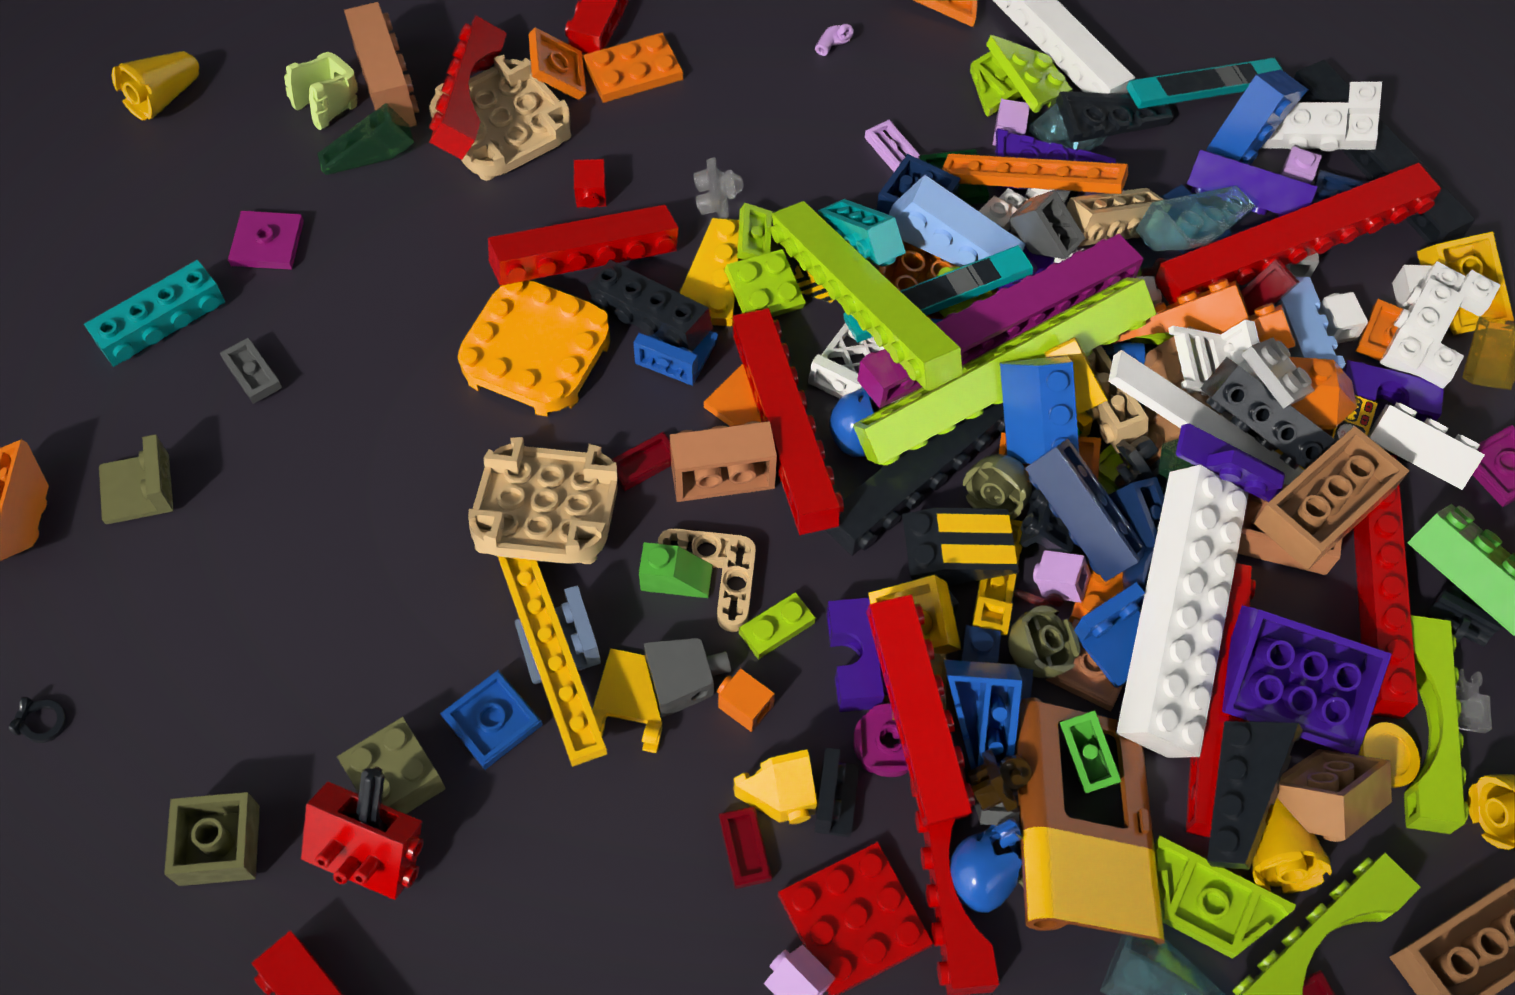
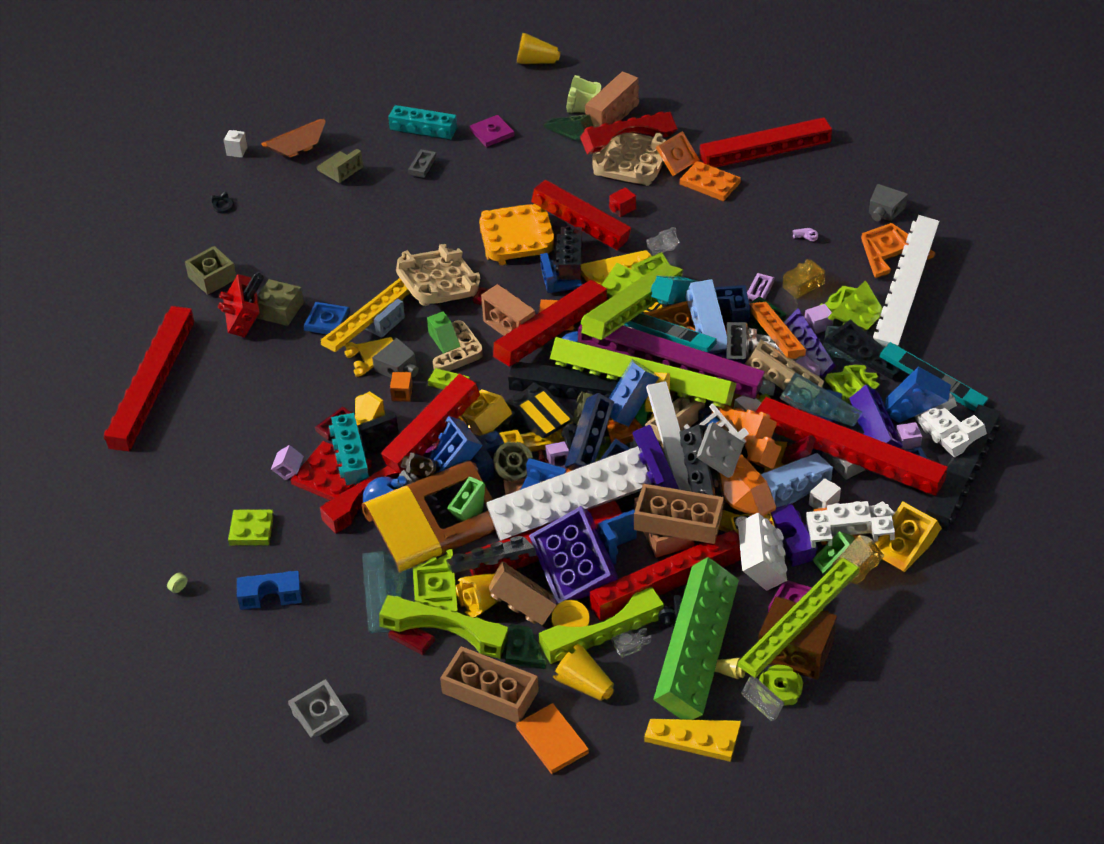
camera: 60 degrees right, 15 degrees down
(852, 863) = (349, 449): none -> teal brick
(922, 92) = (803, 278): none -> clear yellow brick
(1156, 163) = (851, 380): none -> lime plate
(1274, 597) = (616, 532): none -> blue bracket
(1416, 852) = (523, 648): none -> clear green wing
(1458, 389) = (826, 557): none -> bright green slope

